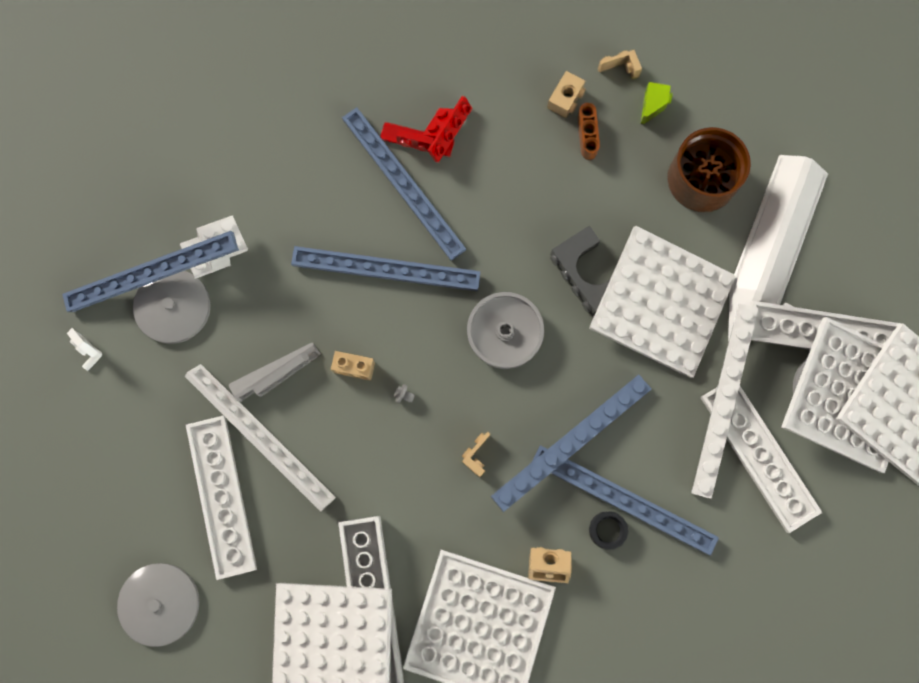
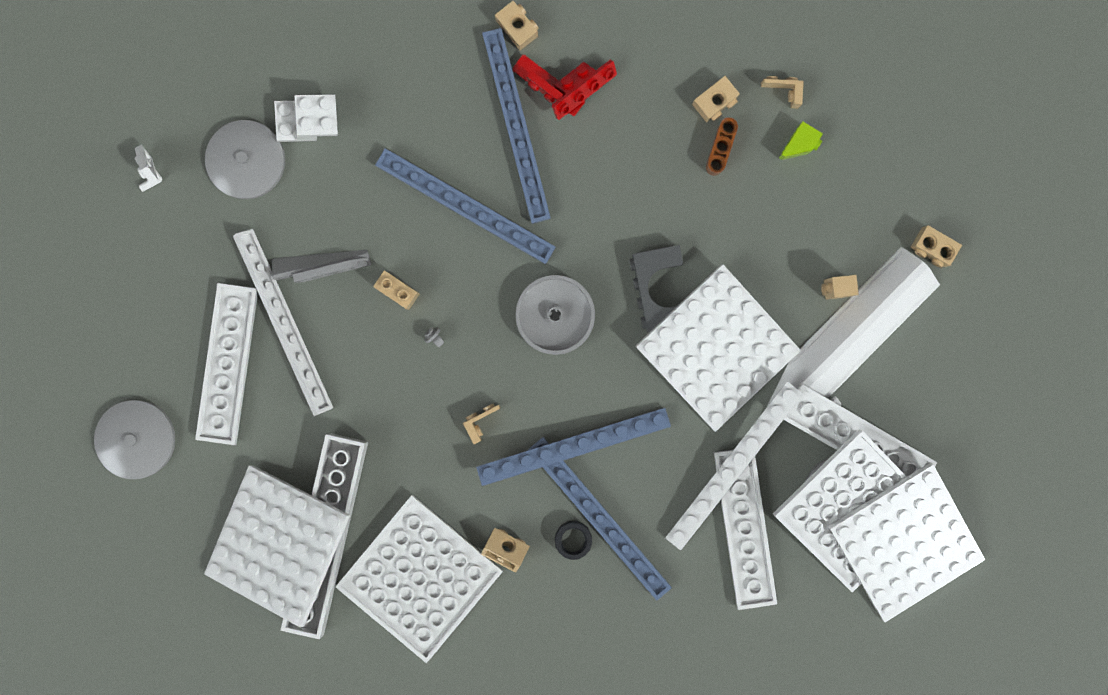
camera: 20 degrees right, 10 degrees up
(150, 271) = (235, 121): sand blue plate -> none
(376, 108) = (519, 36): none -> tan brick
(728, 152) = (848, 227): reddish brown wheel -> none
(746, 205) = (840, 287): none -> tan brick
(809, 137) = (937, 242): none -> tan brick

